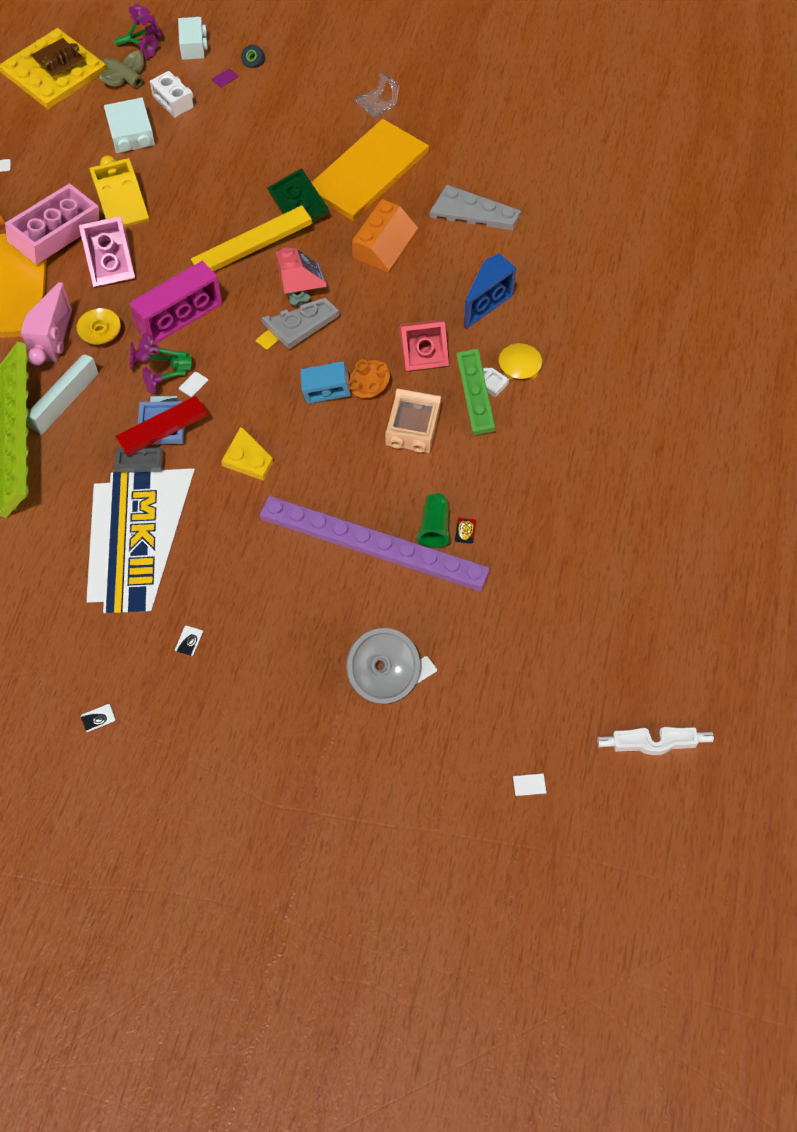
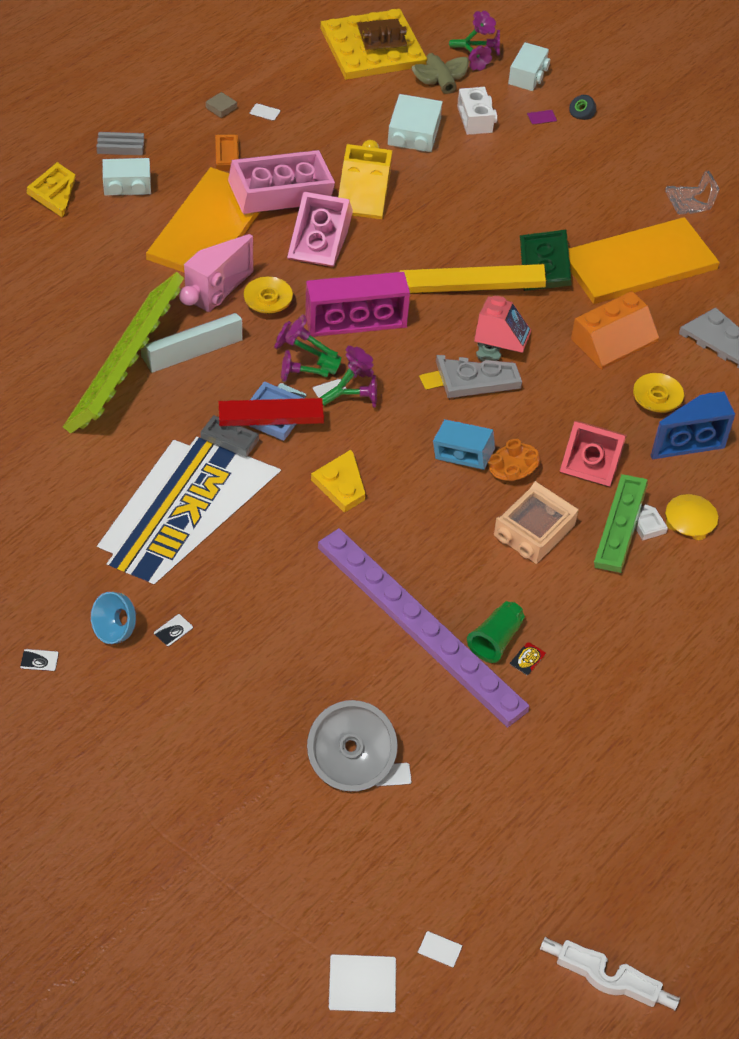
camera: 25 degrees right, 10 degrees down
(134, 661) = (106, 619): none -> dark azure piece
(208, 353) = (358, 364): none -> magenta plant
(444, 273) = (658, 392): none -> yellow dish
(490, 839) = (362, 983): none -> white sticker

